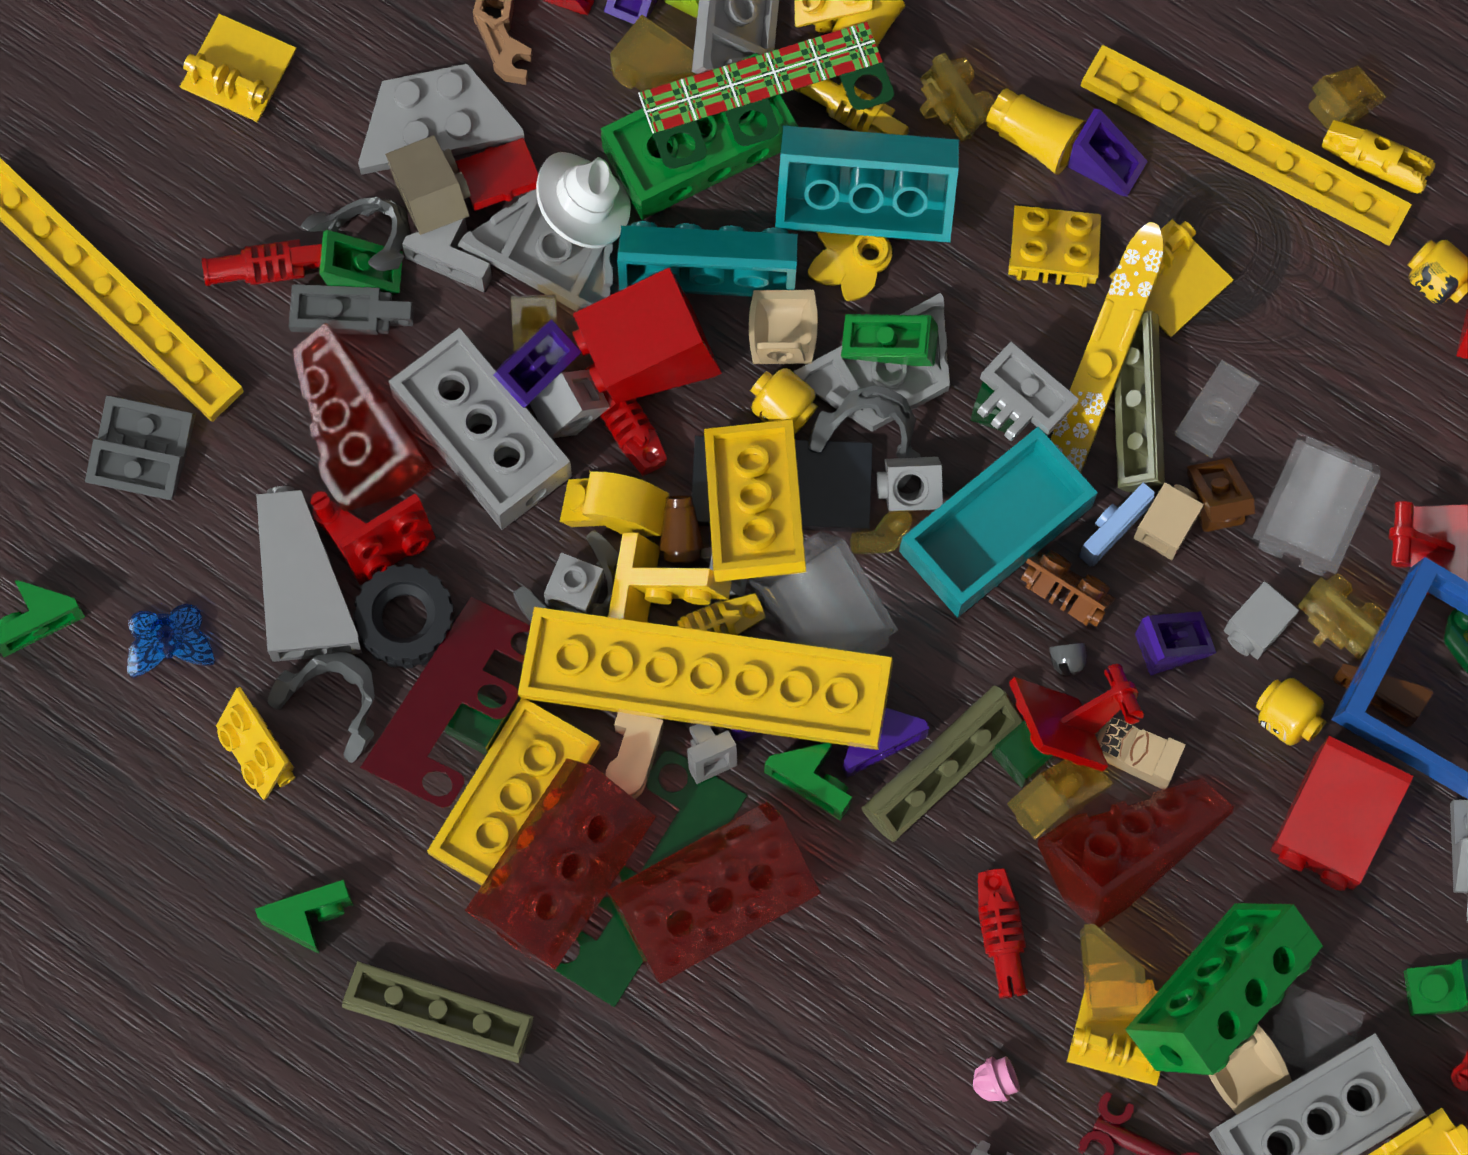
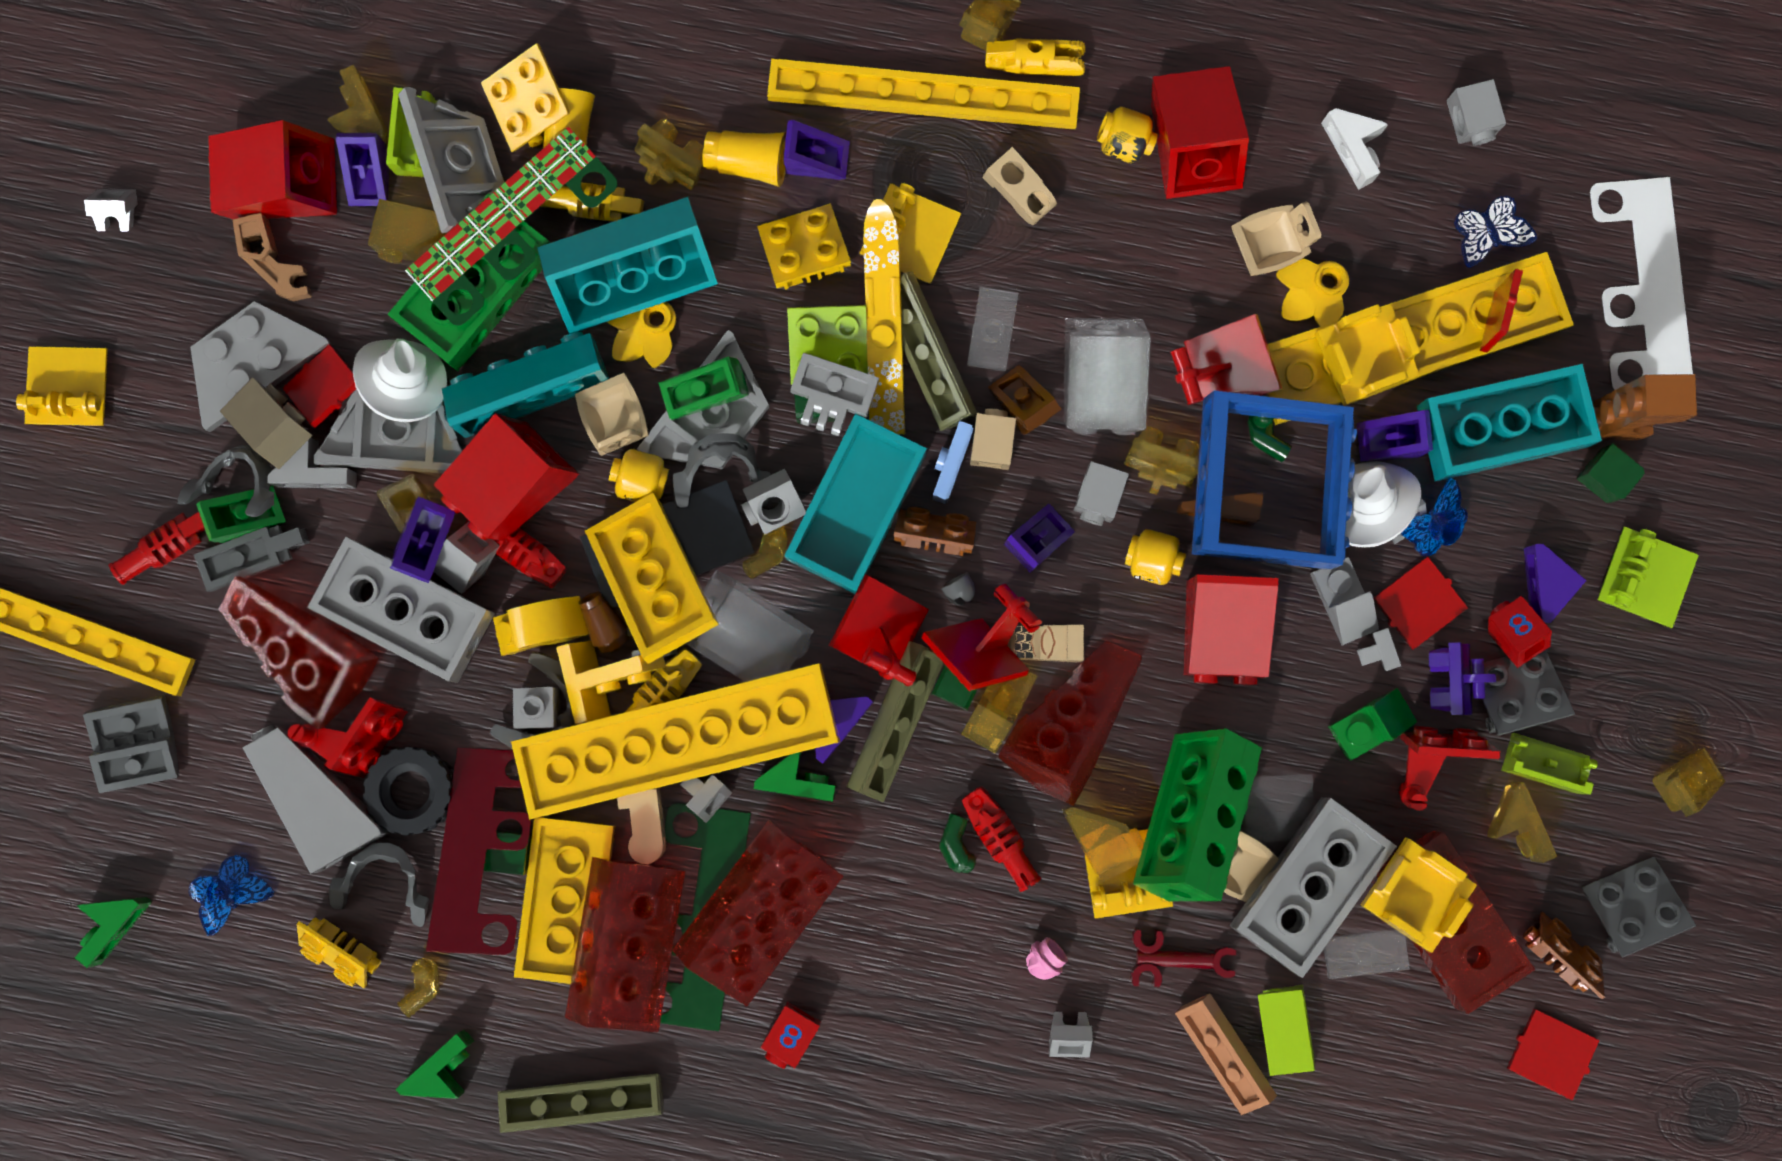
camera: 20 degrees left, 10 degrees up
(328, 824) = (425, 986): none -> clear yellow arm
(689, 1040) = (790, 1036): none -> red brick
(947, 921) = (953, 848): none -> dark green arm
(967, 658) = (879, 629): none -> red plate
(1045, 336) = (829, 334): none -> lime hinge
(1307, 277) = (1020, 186): none -> tan leg

